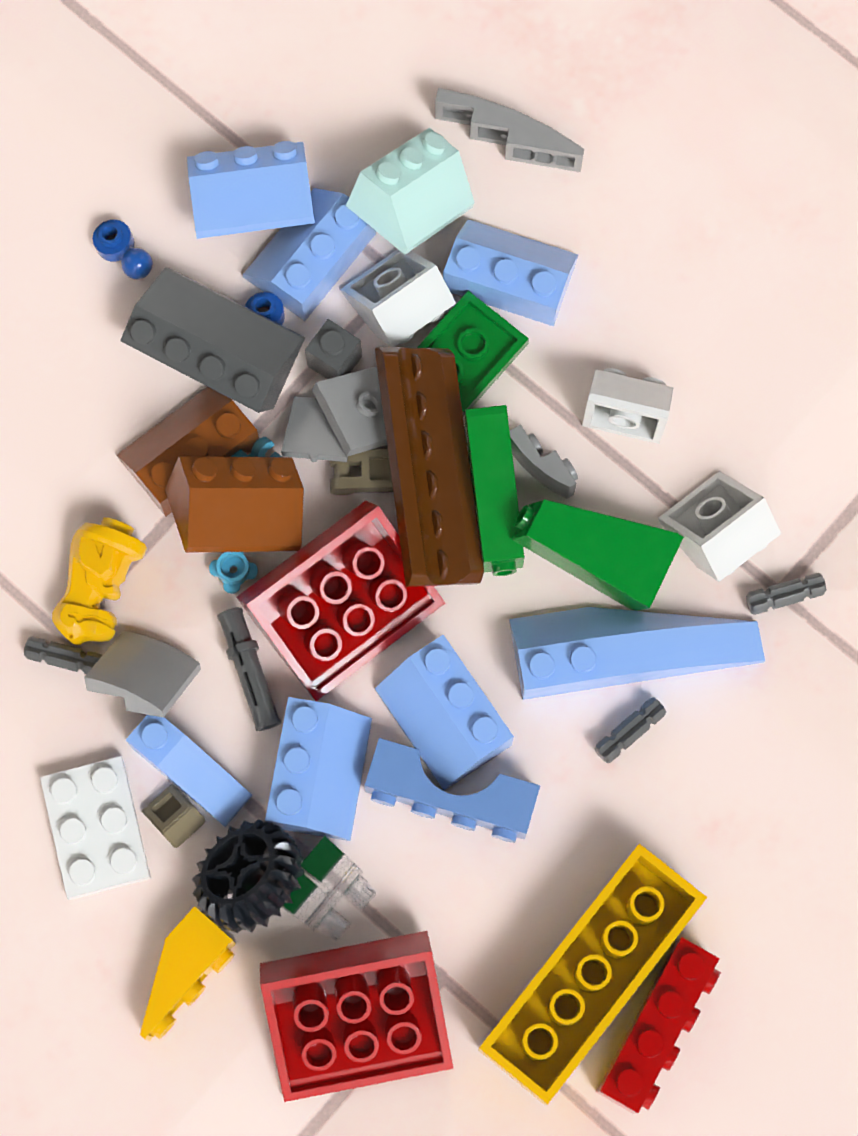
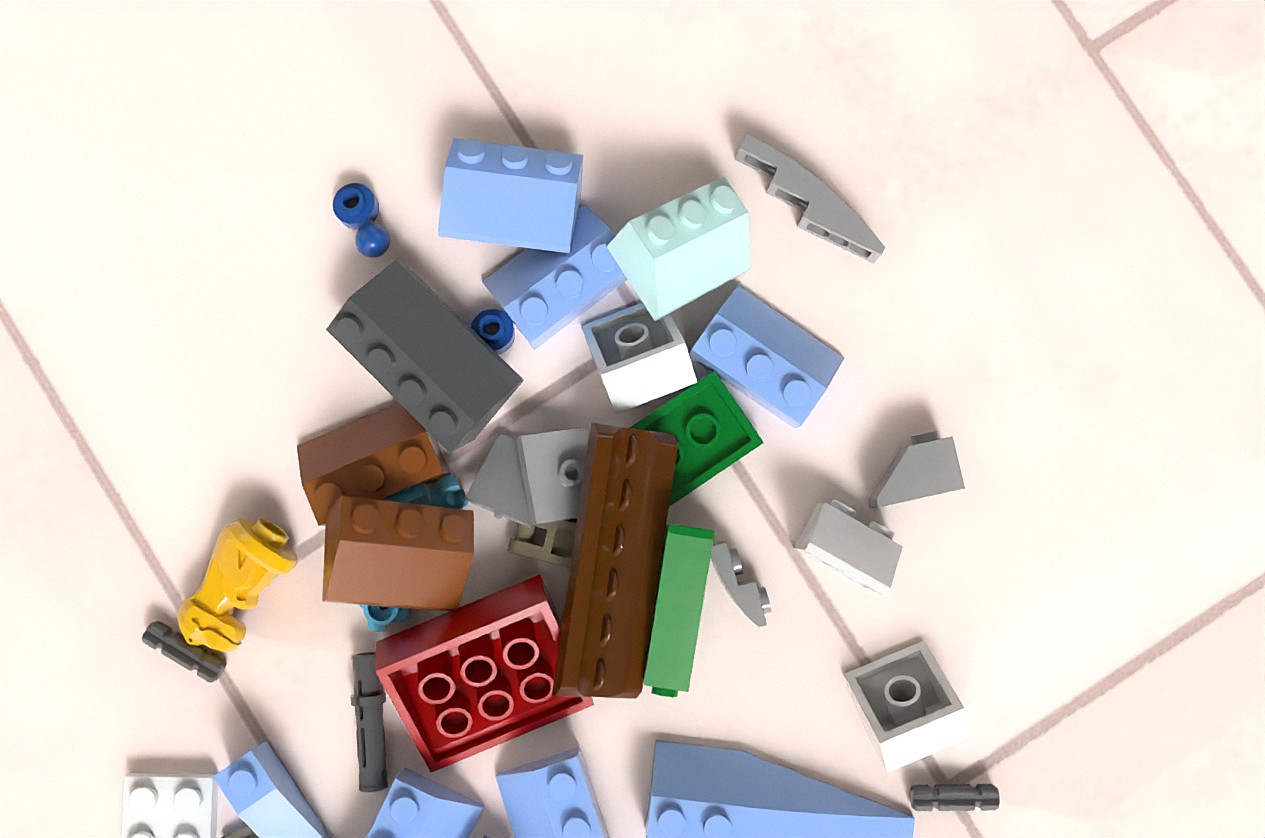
camera: 15 degrees right, 10 degrees up
(143, 672) = (253, 704): light grey slope -> none
(333, 351) = (551, 400): dark grey brick -> none
(599, 549) = (776, 709): green slope -> none
(673, 328) = (919, 471): none -> light grey slope

